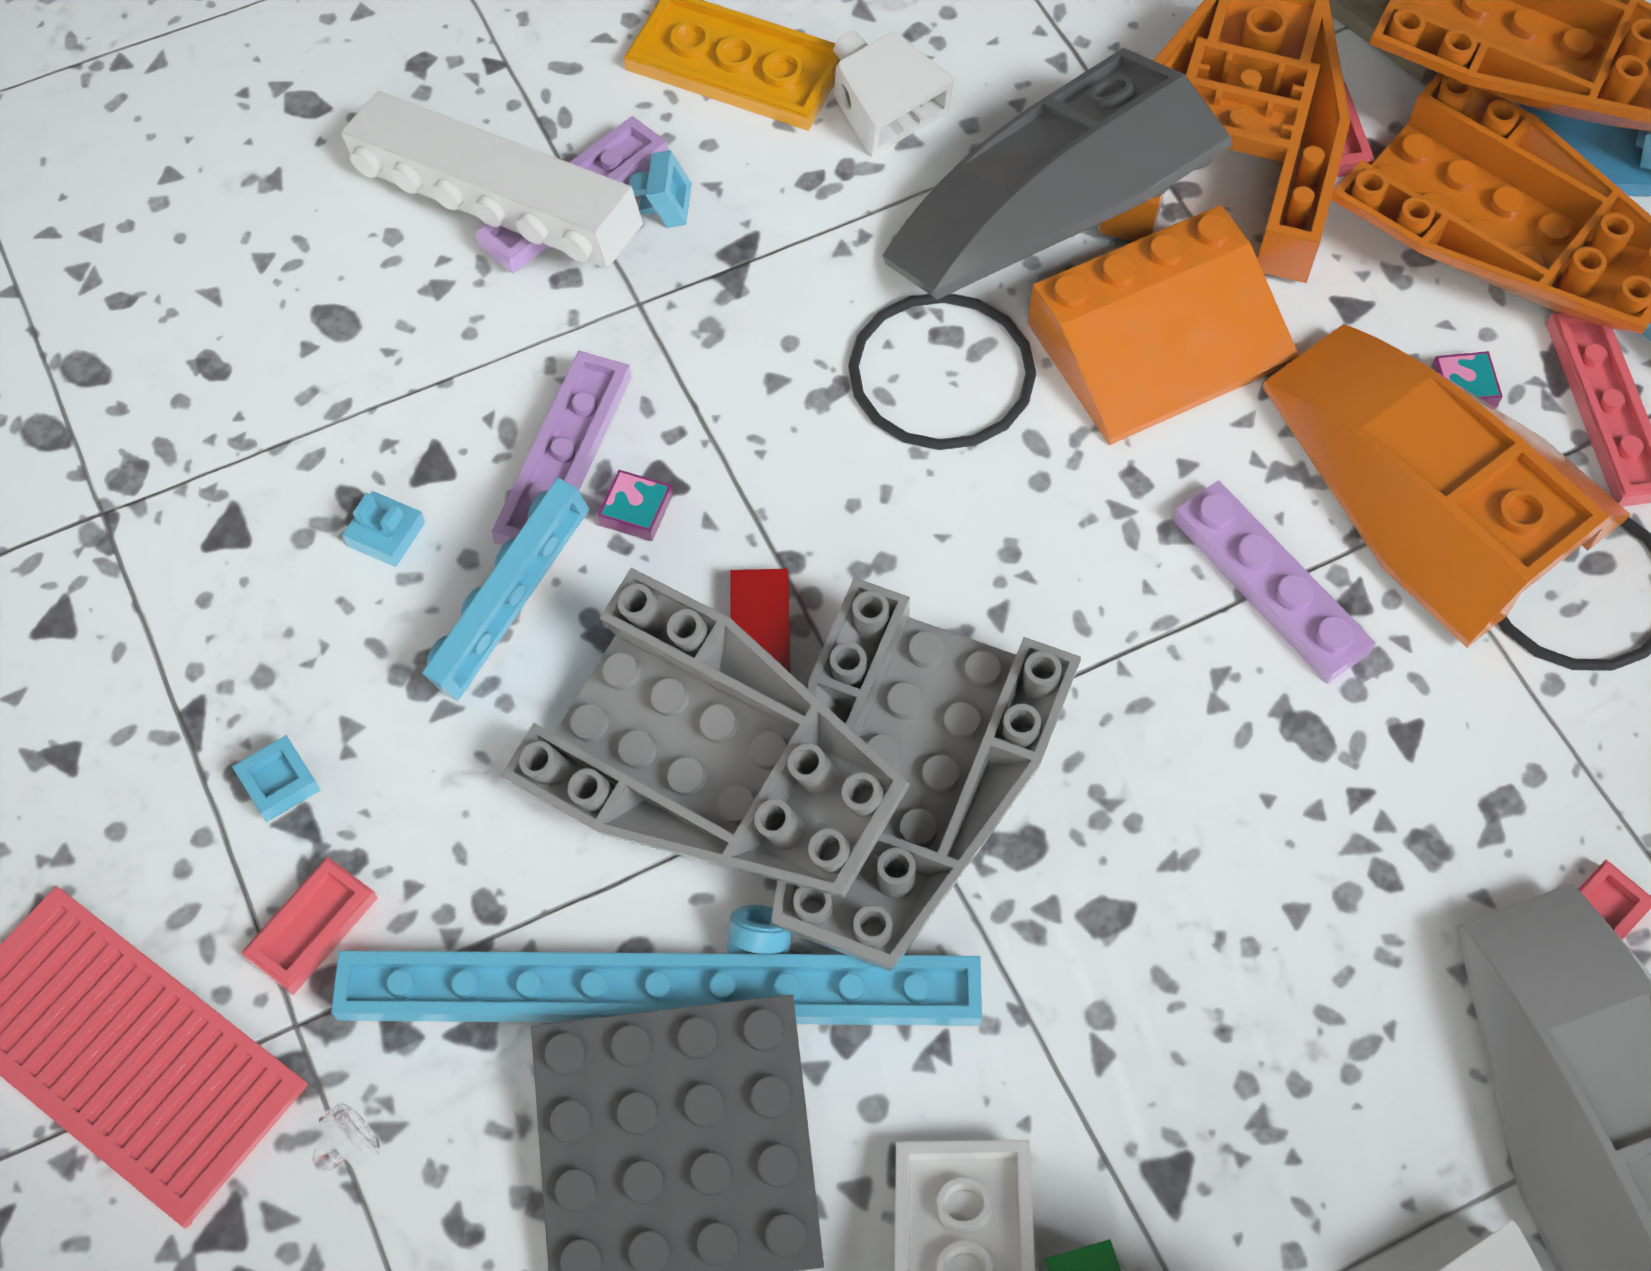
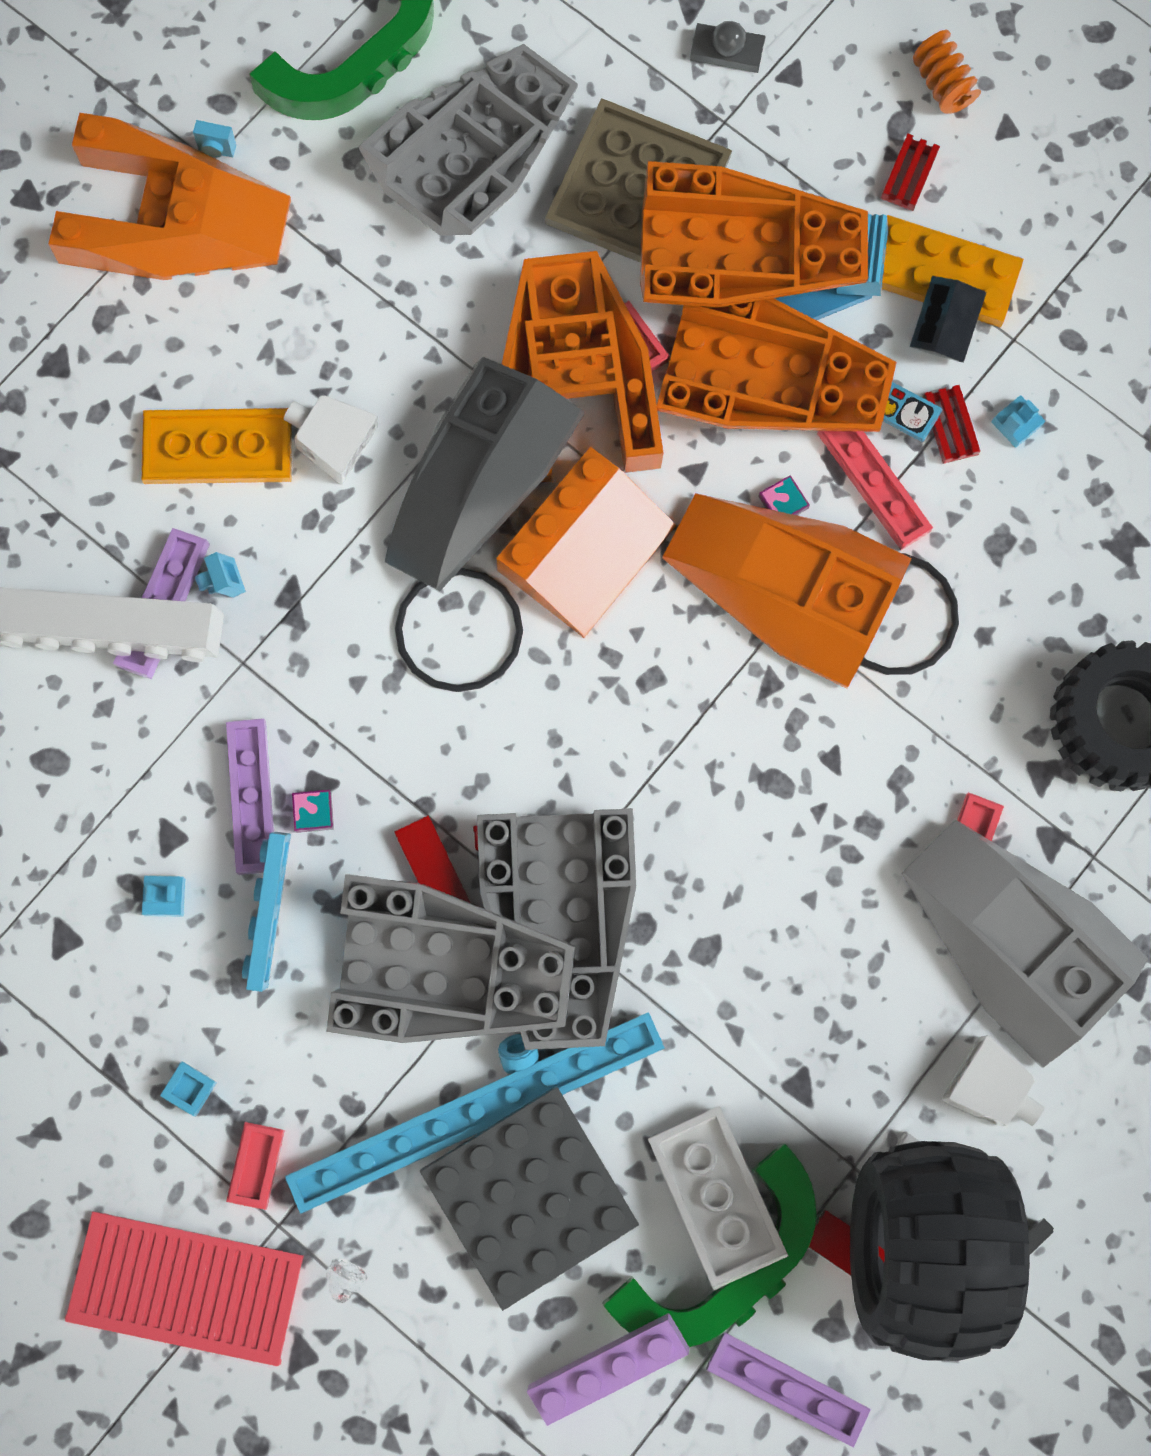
camera: 30 degrees left, 15 degrees up
(1273, 581) = (718, 692): lavender plate -> none

